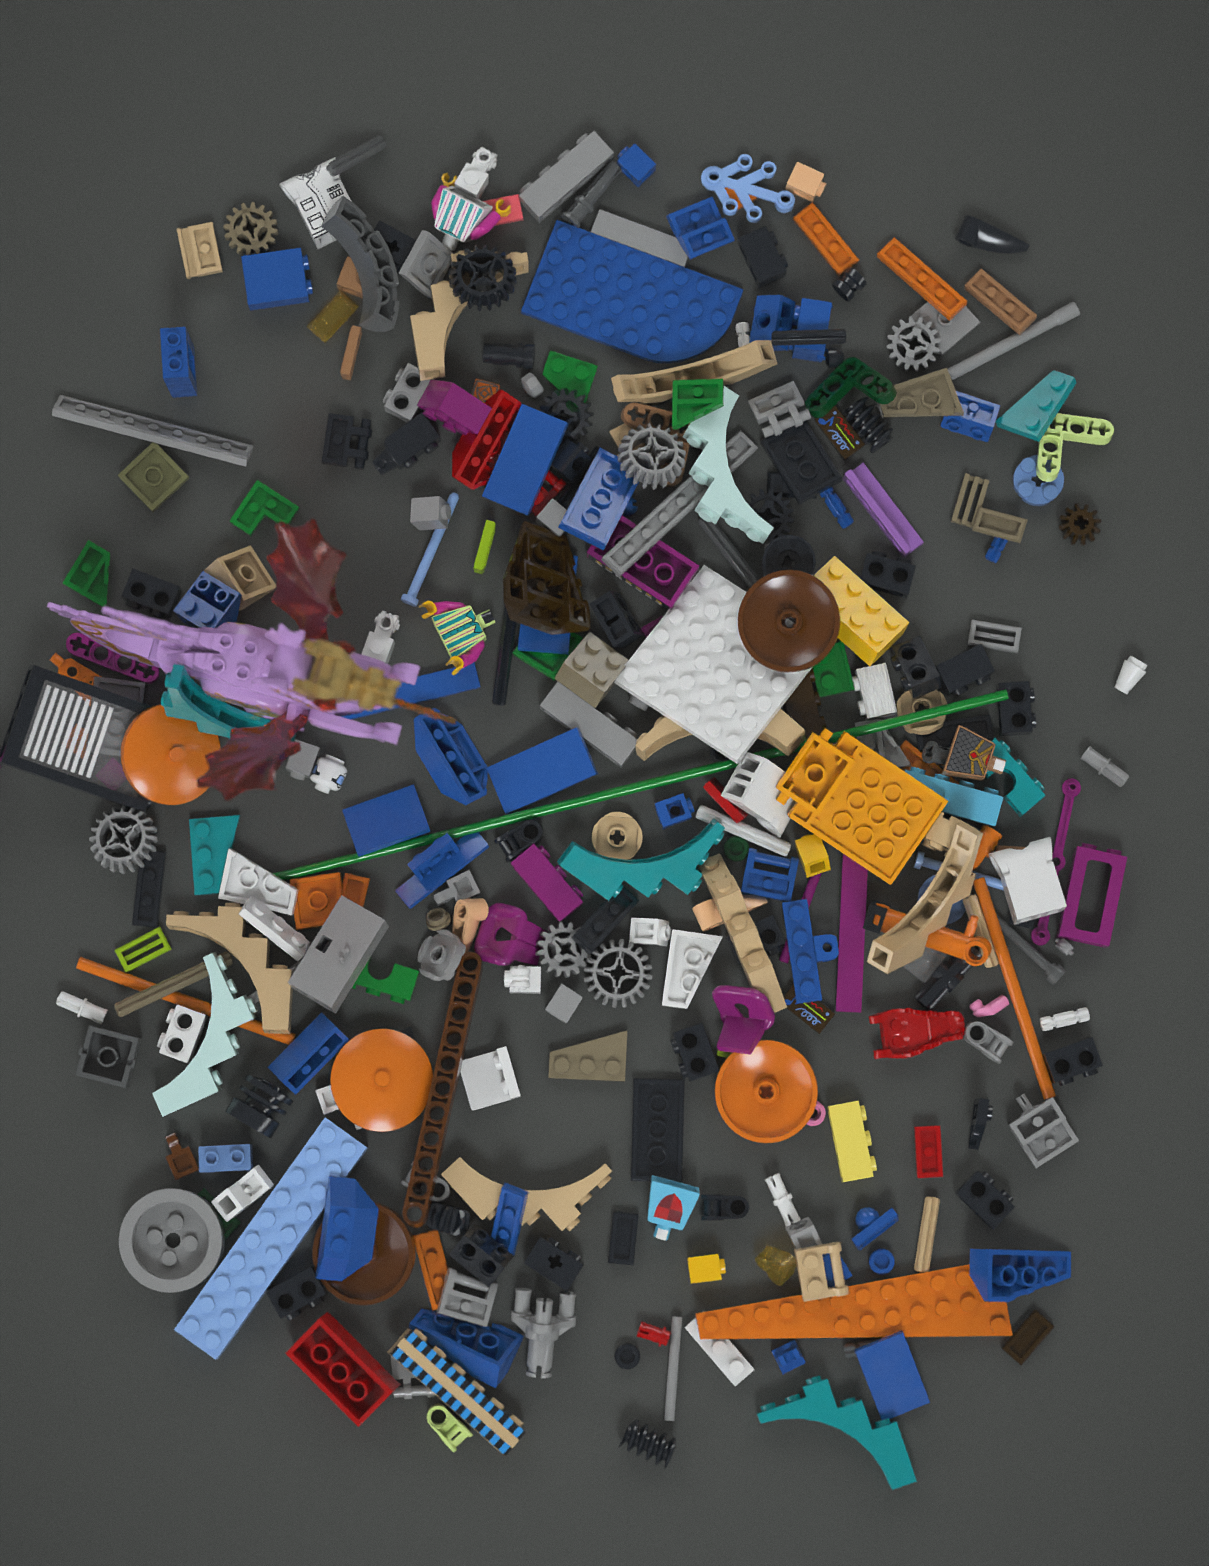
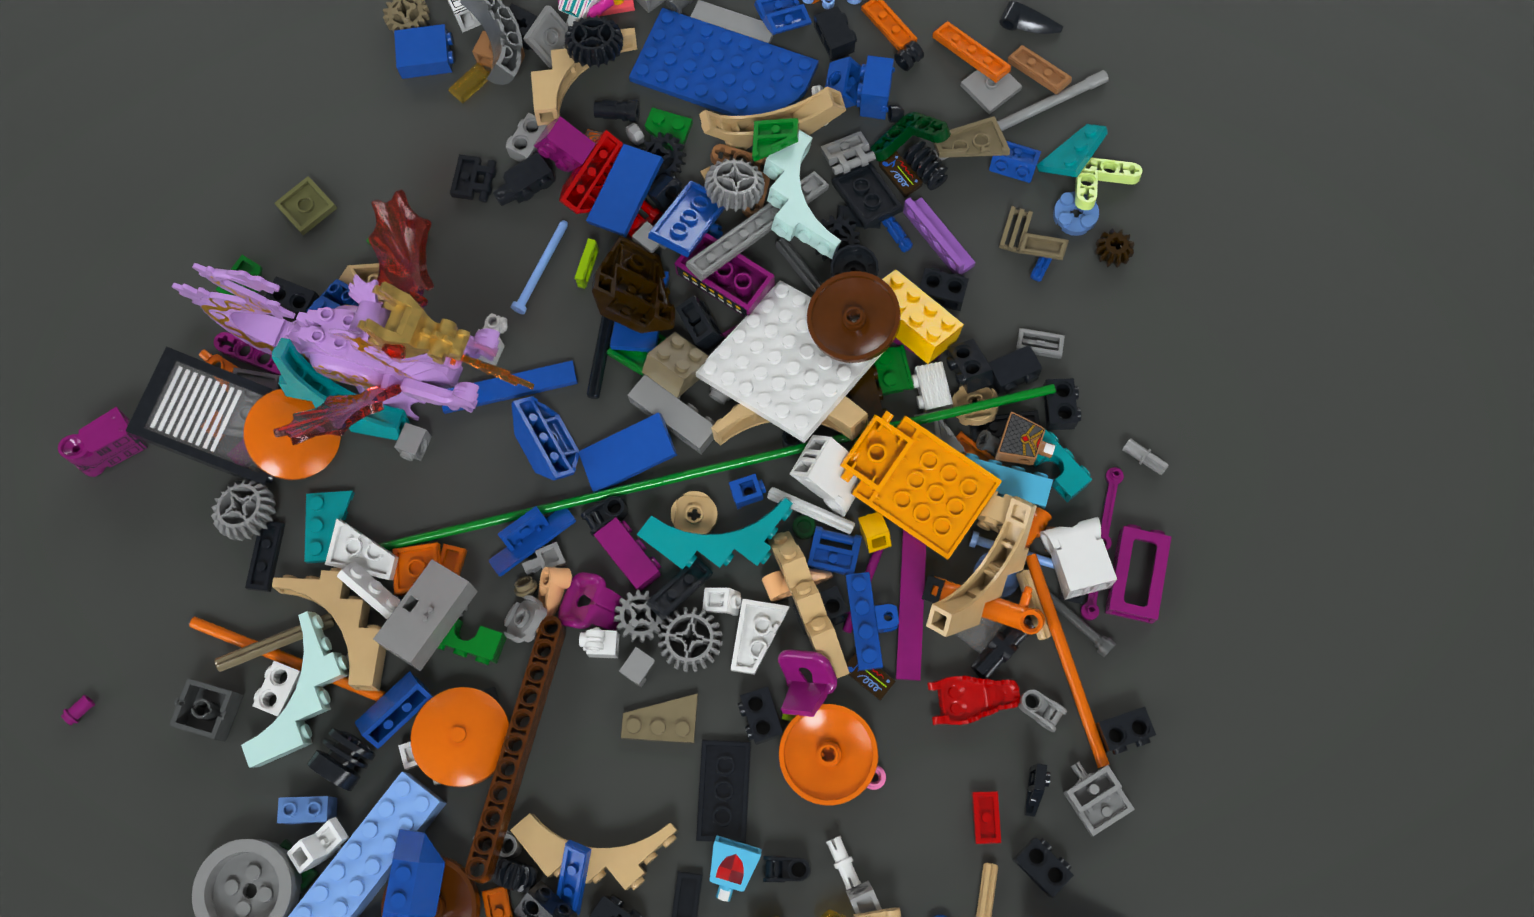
camera: 10 degrees right, 10 degrees down
(81, 1007) = (190, 663): white axle -> none
(152, 430) = (309, 168): light grey tile -> none
(162, 939) = (259, 618): lime tile -> none
(178, 362) = (328, 105): blue piece -> none
(181, 1160) = (266, 809): reddish brown plate -> none
(199, 250) = (363, 30): tan plate -> none
(328, 774) = (435, 455): white head -> none
(351, 352) = (482, 108): medium nougat tile -> none
(386, 820) = (483, 497): blue tile -> none
(430, 513) = (539, 234): light grey brick -> none
(459, 630) = (559, 331): torso -> none
(489, 1079) = (565, 738): white bracket -> none
(715, 789) = (802, 491): red tile -> none
(808, 337) = (873, 84): black axle -> none
(851, 1141) = (911, 805): light yellow brick -> none
(872, 1225) = (931, 890): blue tile -> none
(925, 347) = (965, 111): light grey gear -> none
(991, 1008) = (1044, 678): bright pink arm -> none
(1064, 946) = (1113, 621): light grey piece -> none
(1064, 1019) = (1115, 690): white axle -> none
(1130, 674) = (1165, 375): white cone -> none

